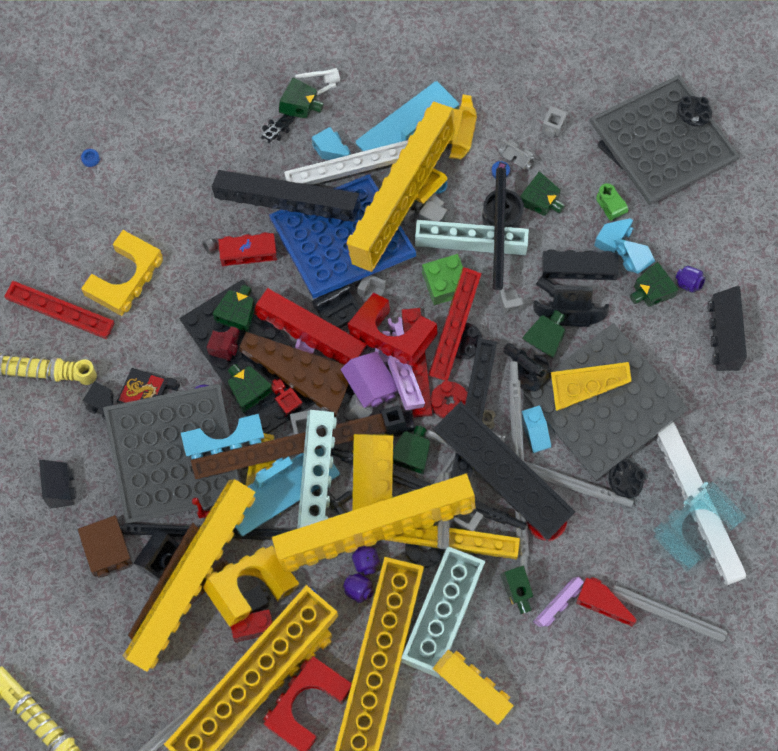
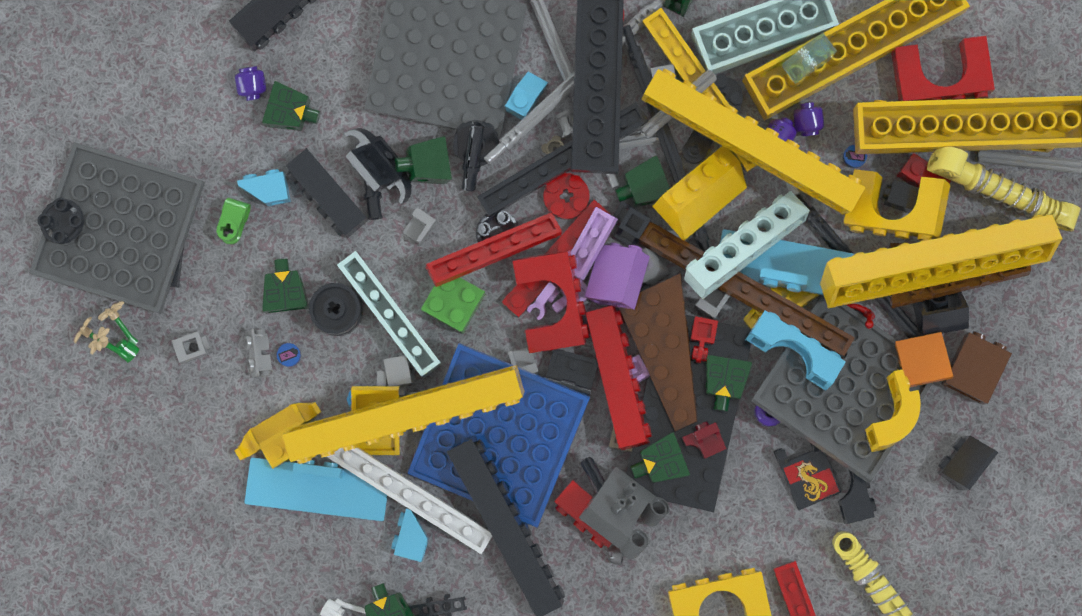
camera: 130 degrees left, 15 degrees up
(118, 460) = (904, 418): none -> yellow arch
(141, 514) = (924, 359): none -> orange tile
(235, 262) = (618, 506): none -> dark grey piece
(241, 635) = (952, 165): none -> light yellow piece
(336, 504) = (752, 207): black piece -> none
(395, 613) = (809, 58): none -> clear light blue slope
(499, 229) = (362, 289): black axle -> none
(584, 383) = (454, 86): yellow wing -> none
(585, 88) = (125, 348): none -> plant
(635, 255) = (272, 150): medium azure slope -> none

